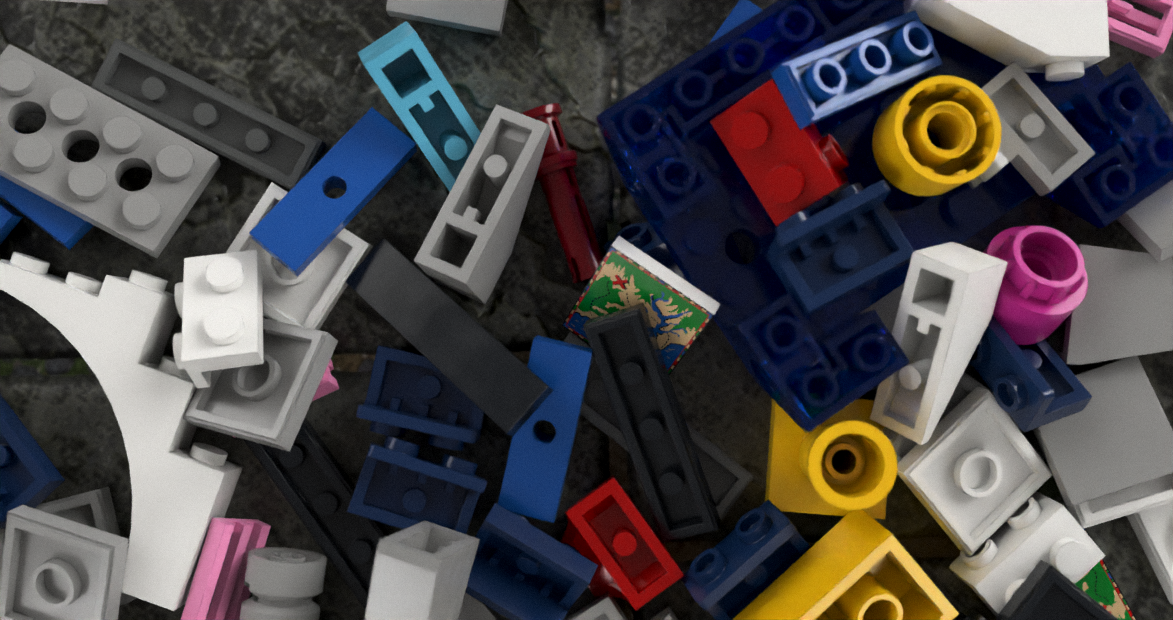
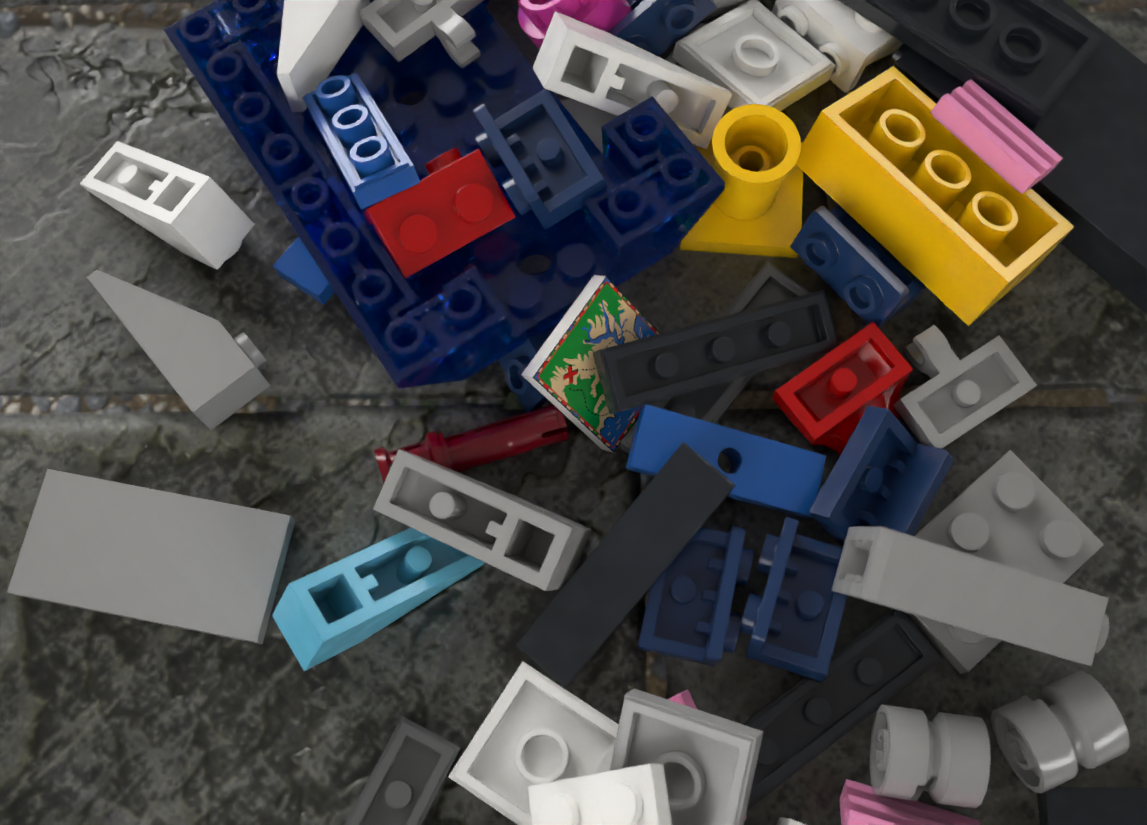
camera: 85 degrees left, 15 degrees down
(358, 164) = (493, 719): blue tile -> none
(961, 120) = (431, 69): yellow piece -> none

